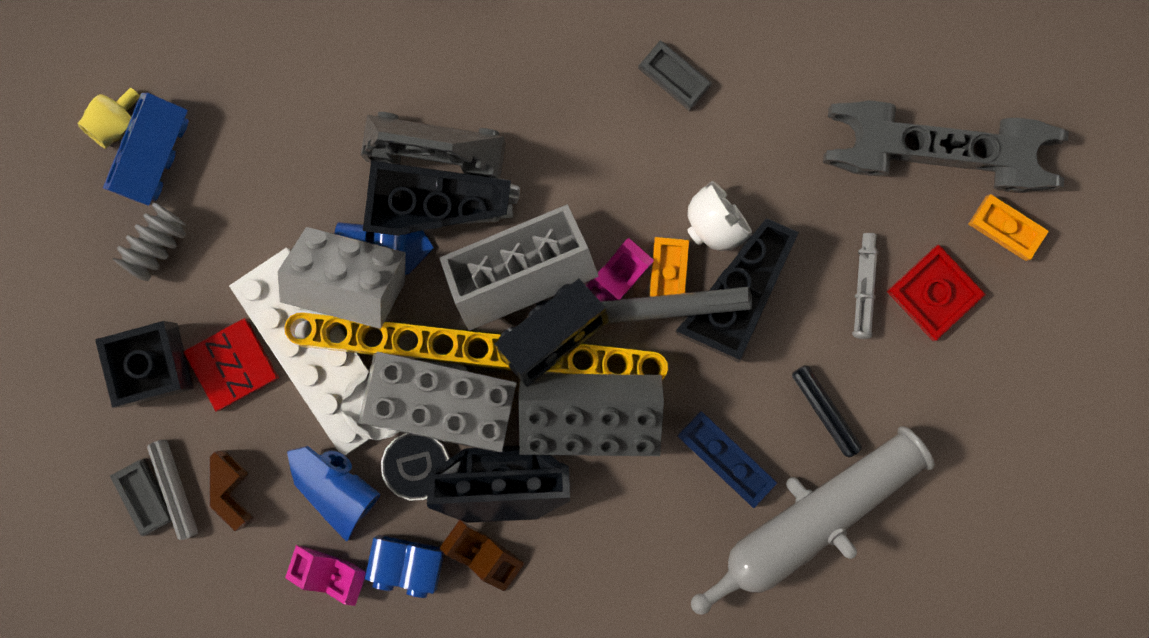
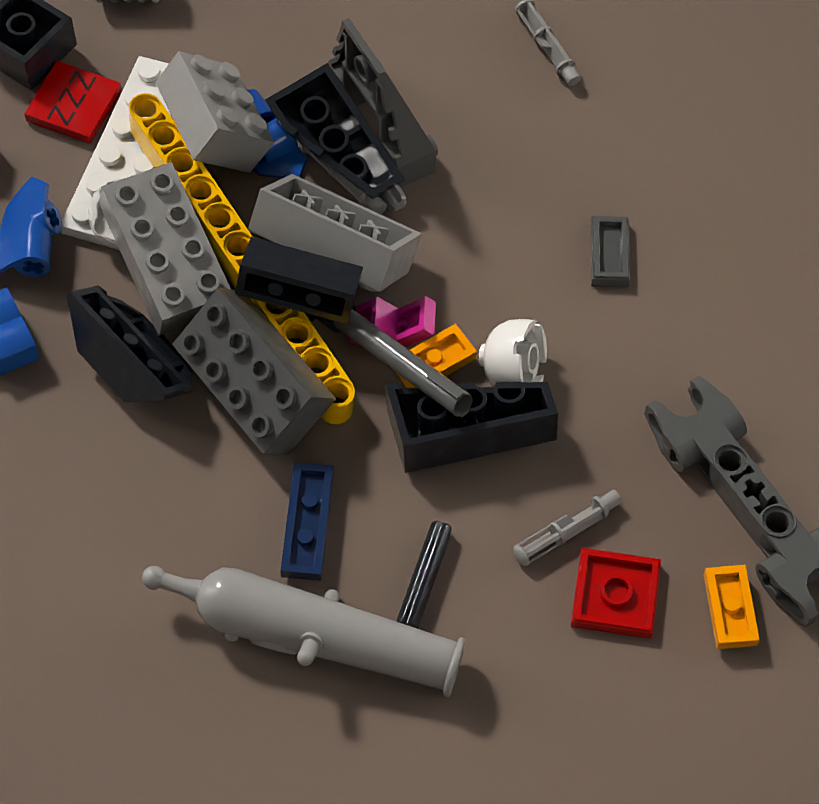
camera: 50 degrees right, 25 degrees down
(408, 462) = (97, 269): black tile -> none
(482, 555) = (57, 386): reddish brown slope -> none

